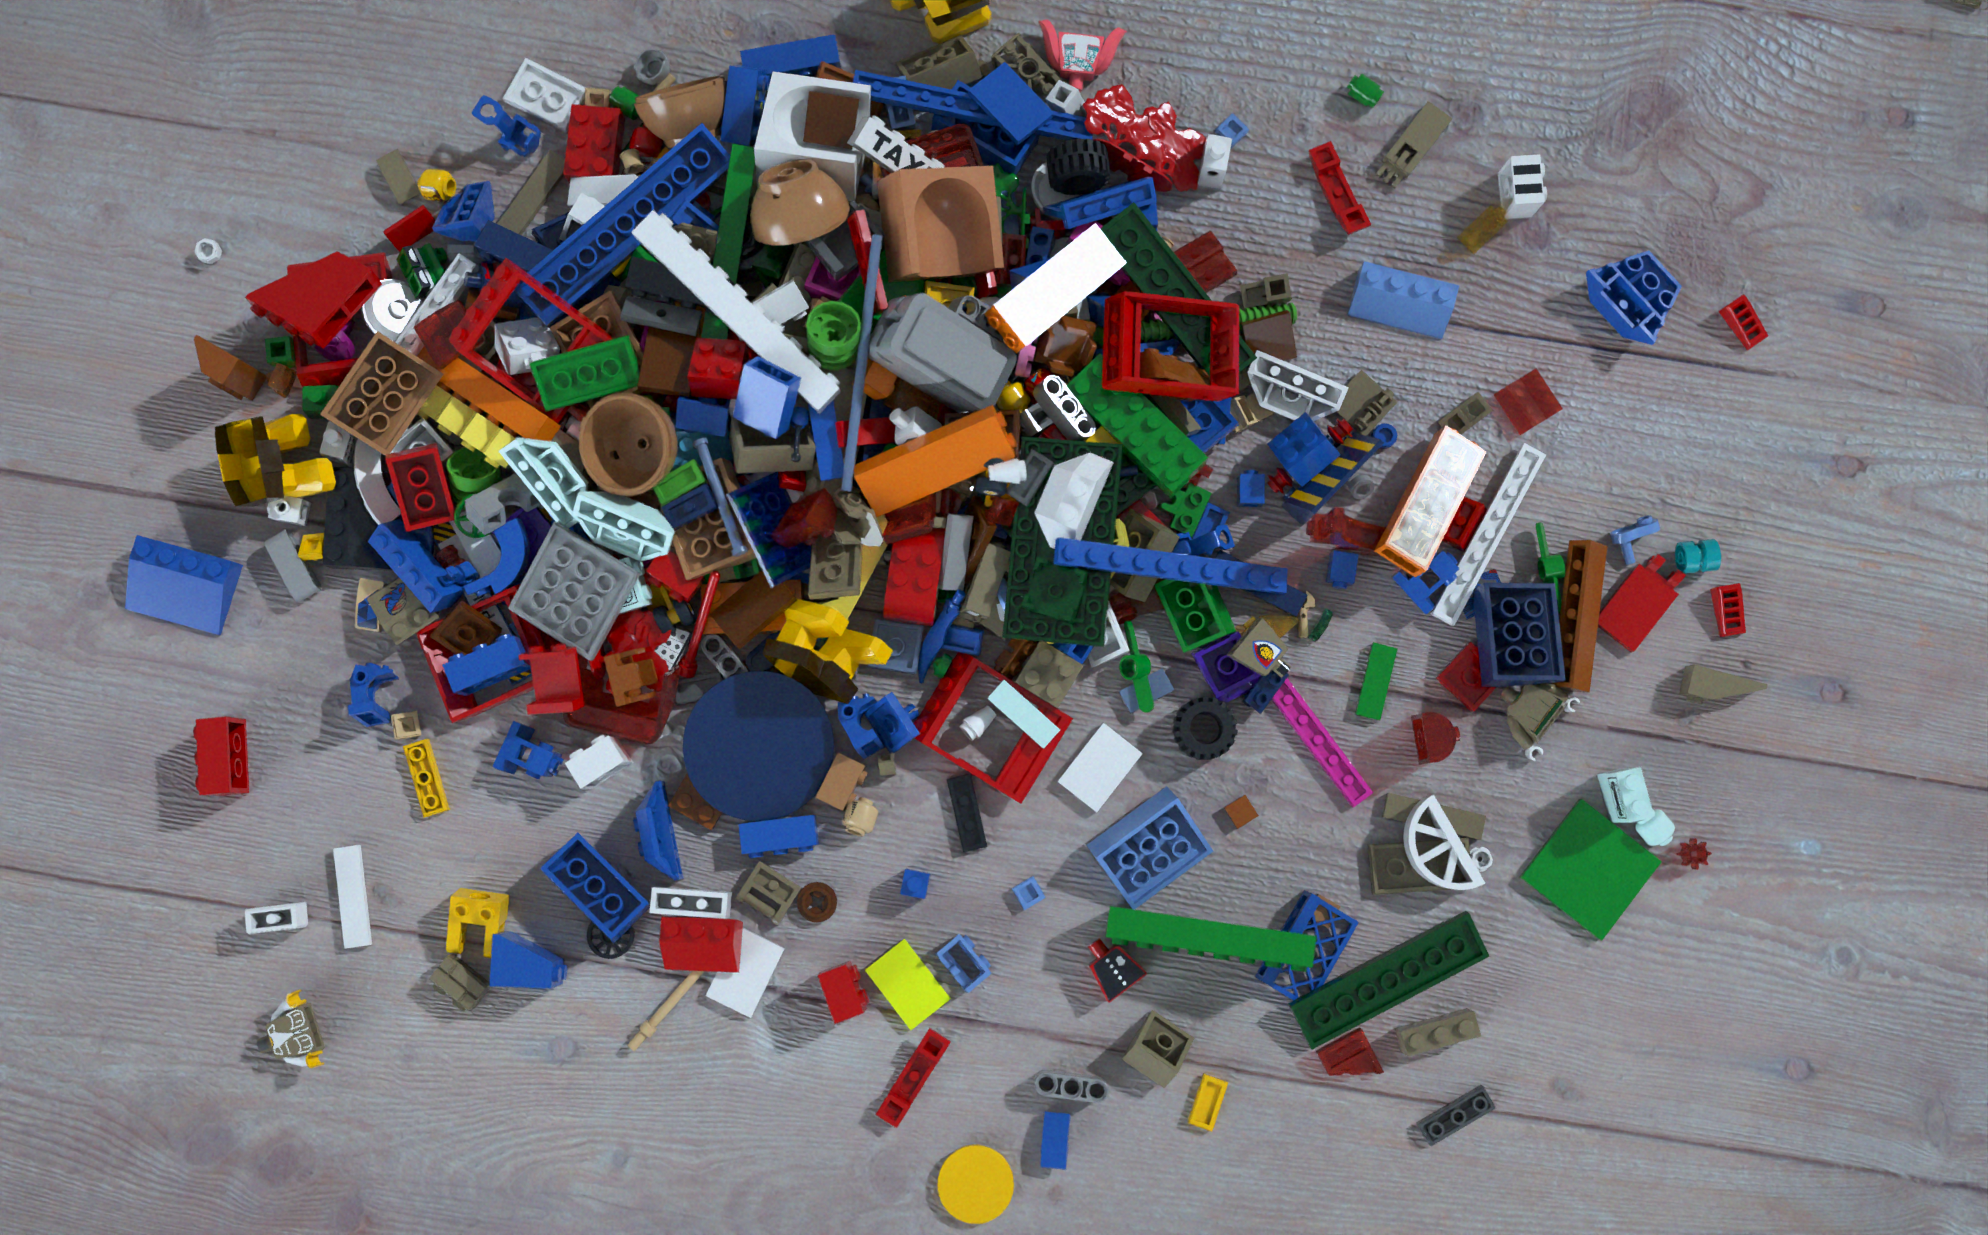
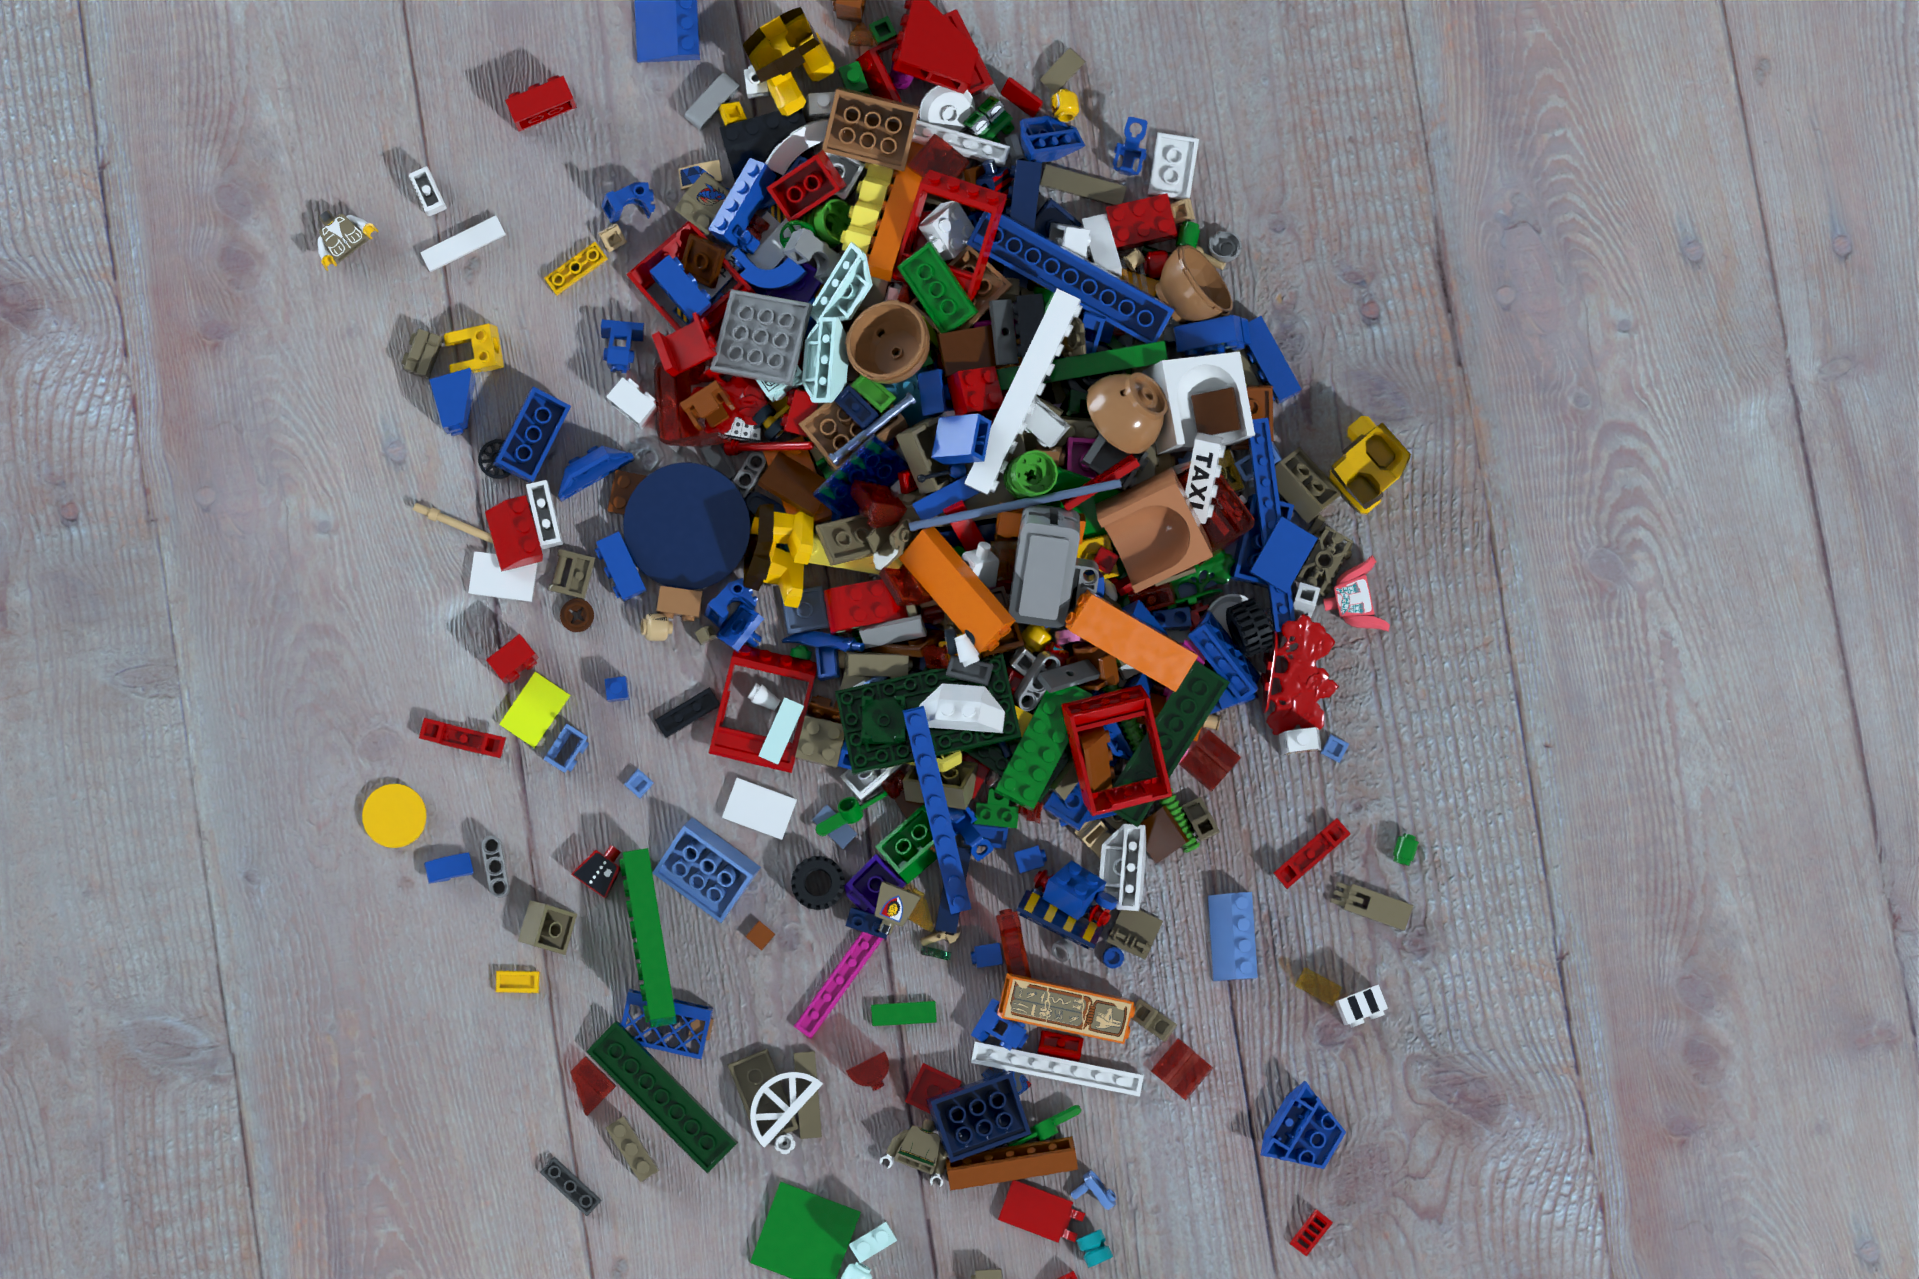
camera: 70 degrees right, 0 degrees up
(950, 291) = (1105, 559): none -> red tile
(1072, 370) = (1068, 675): none -> dark grey tile
(1327, 417) = (1106, 900): none -> blue tile

